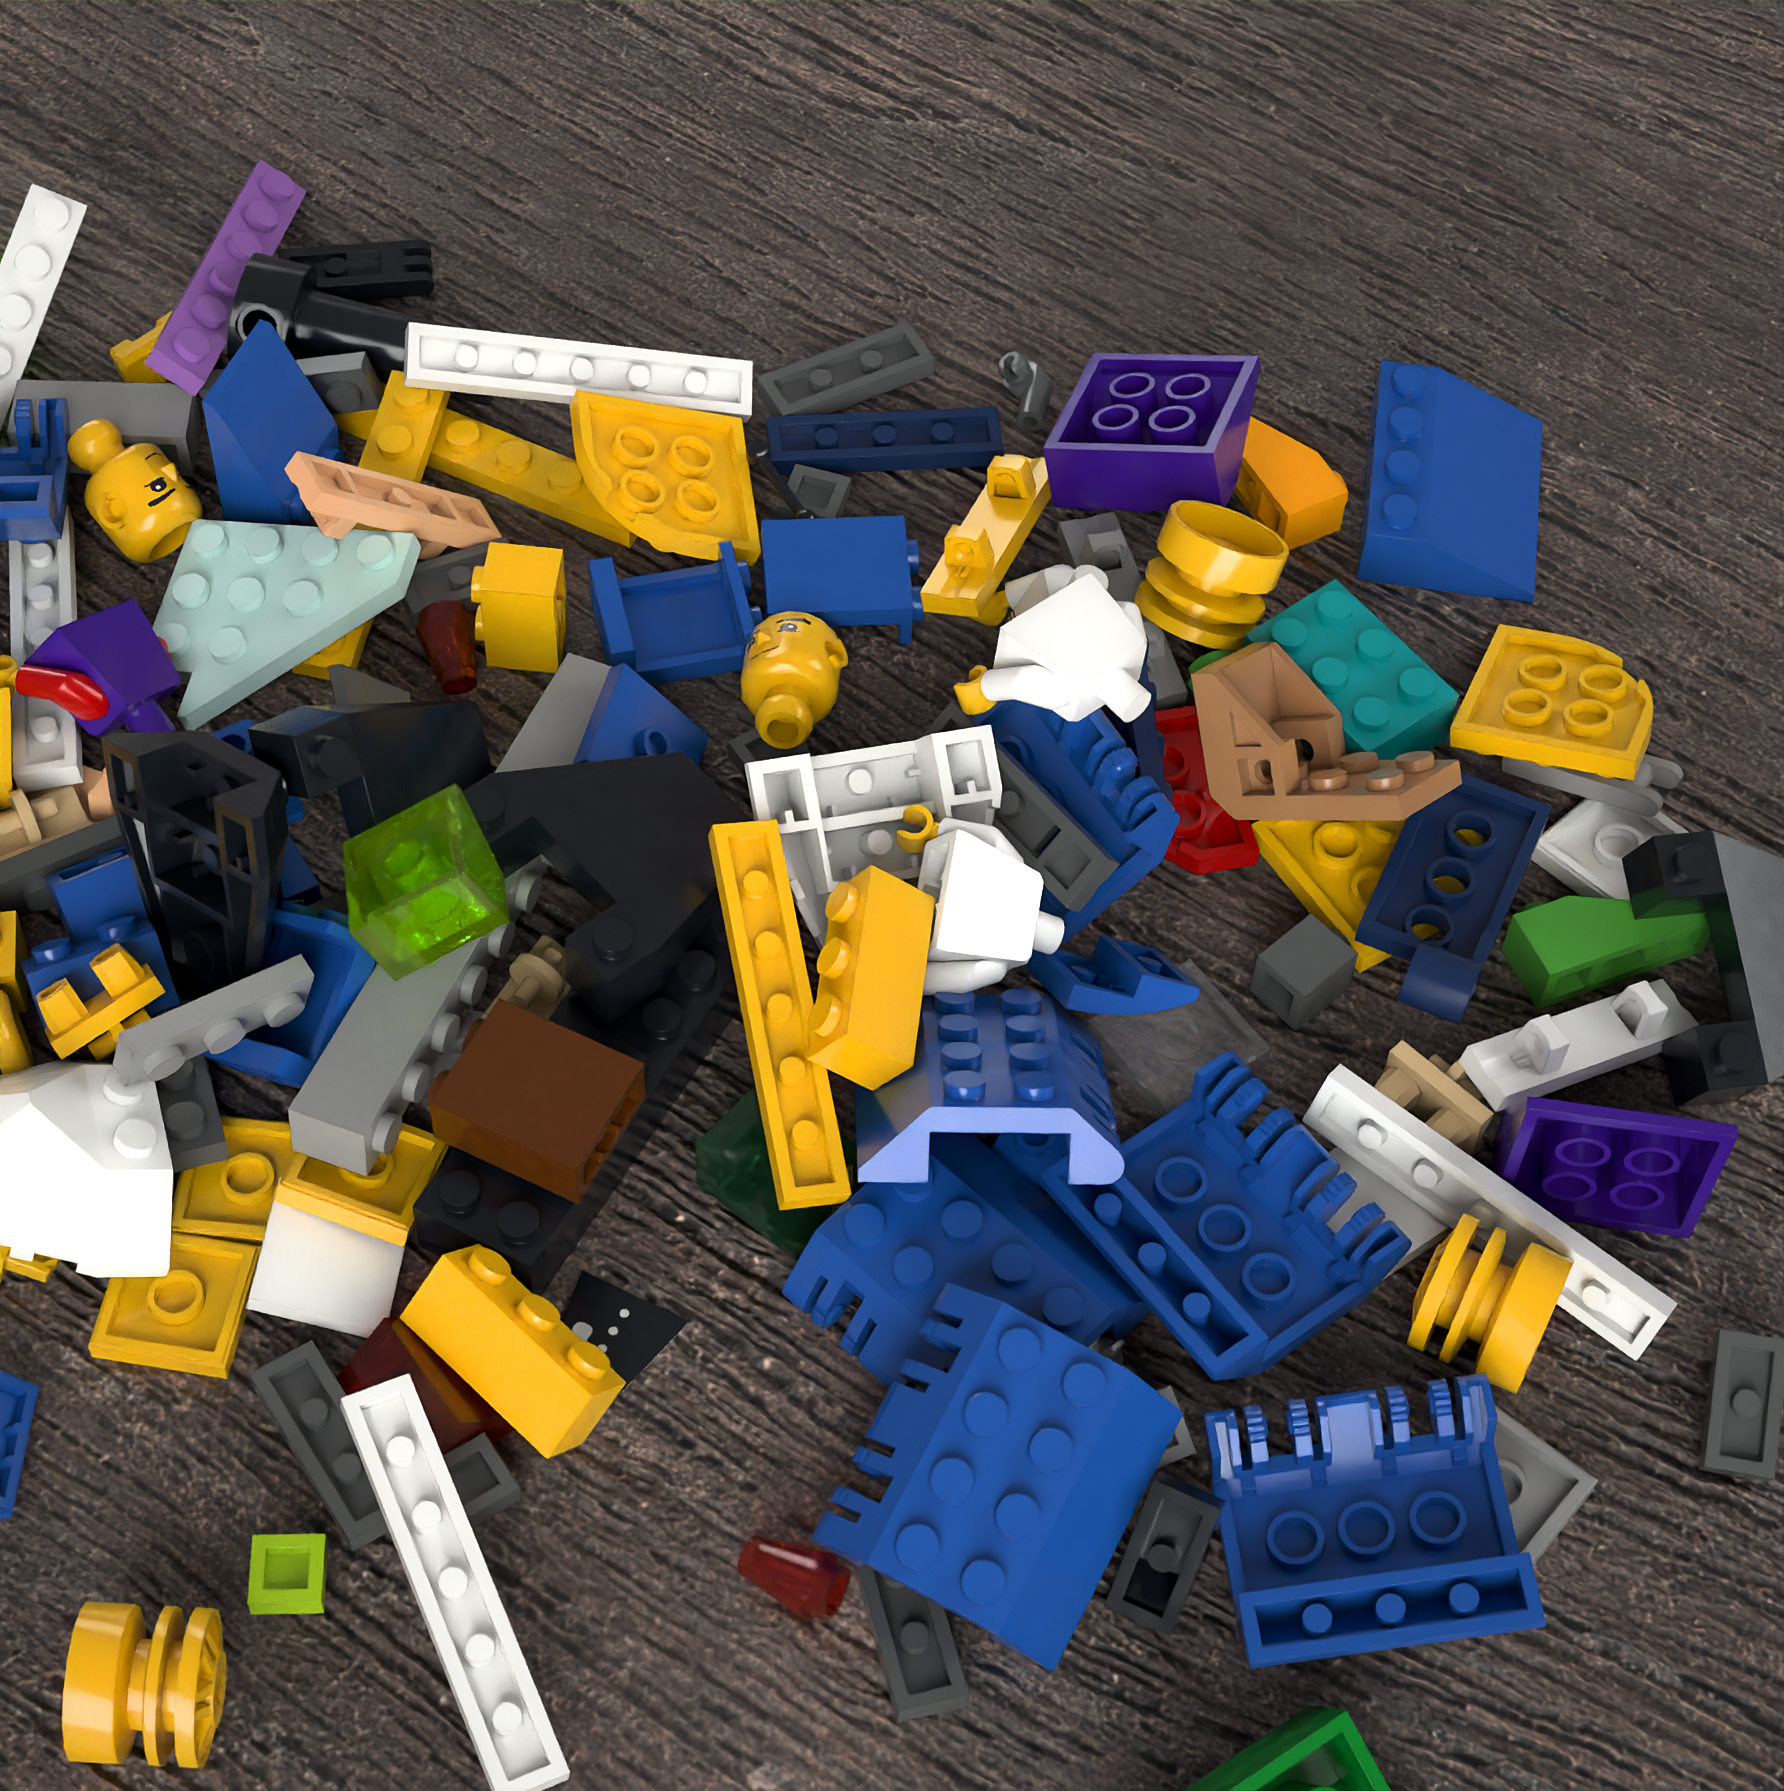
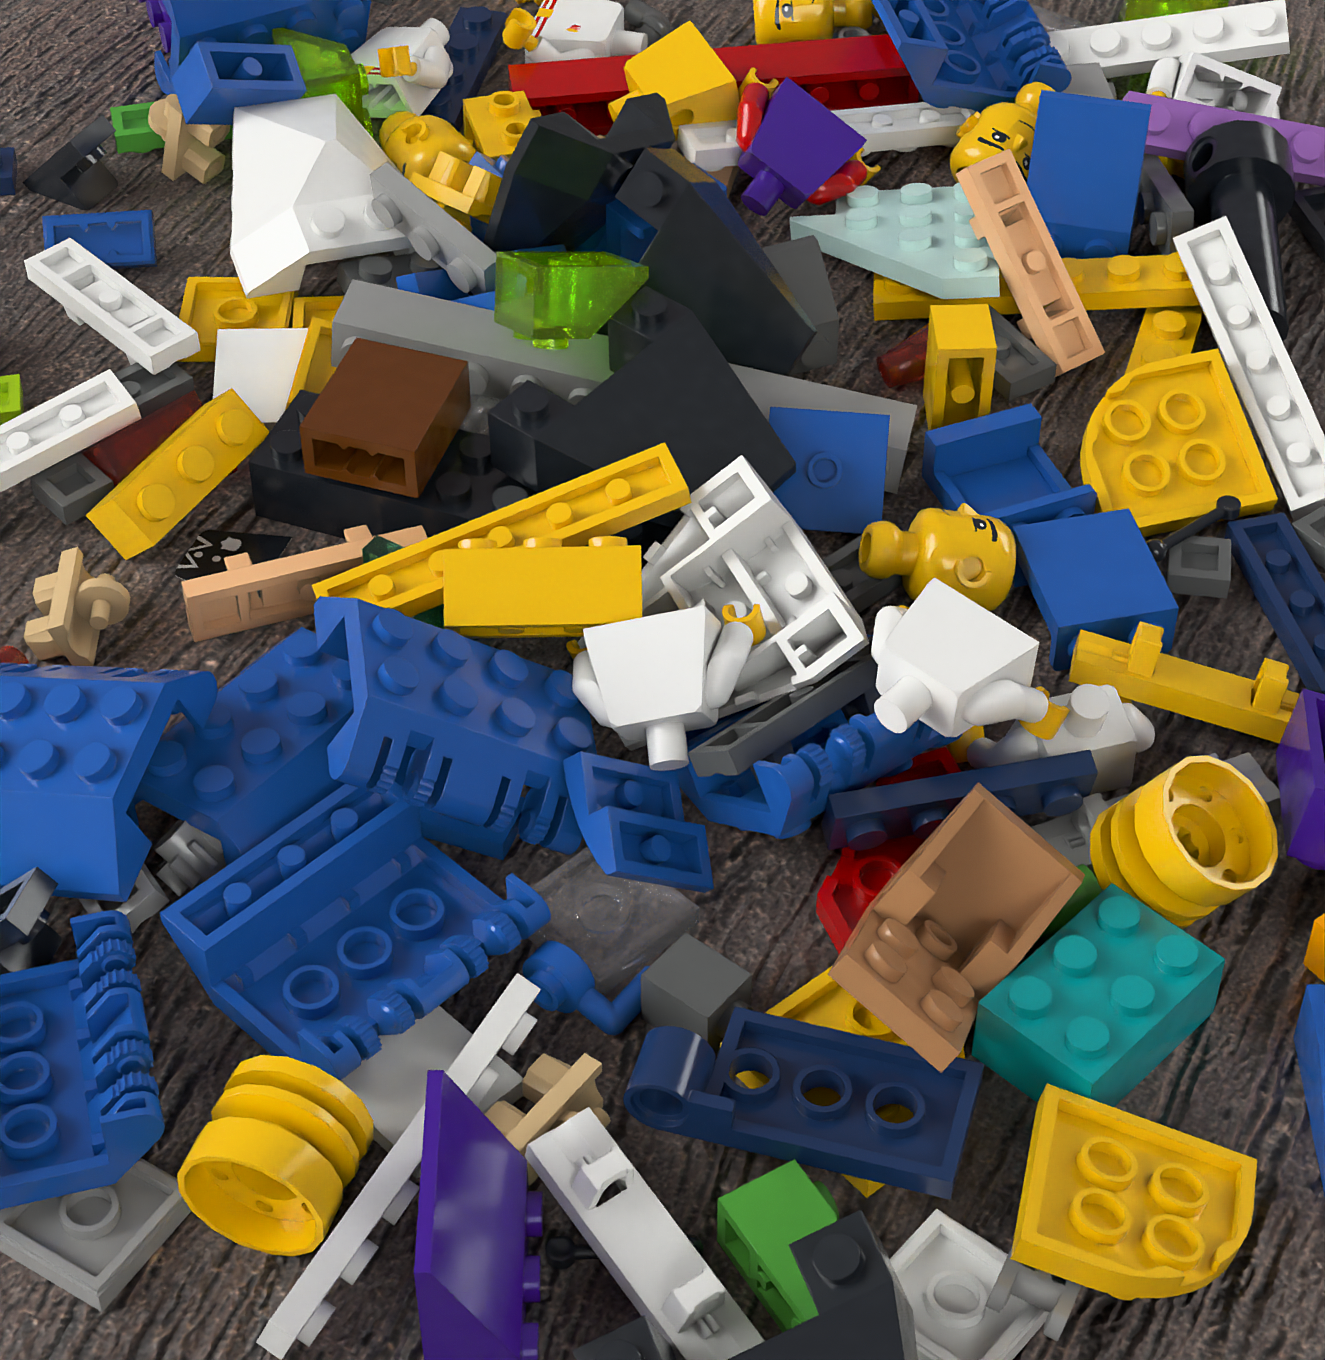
camera: 85 degrees right, 10 degrees down
(117, 301) = (1213, 84): none -> white torso
(156, 1419) = (112, 306): none -> white hinge
(699, 1301) = (230, 599): none -> light nougat hinge
(723, 1488) = (74, 611): none -> tan hips
(1283, 1059) = (570, 986): none -> blue plate

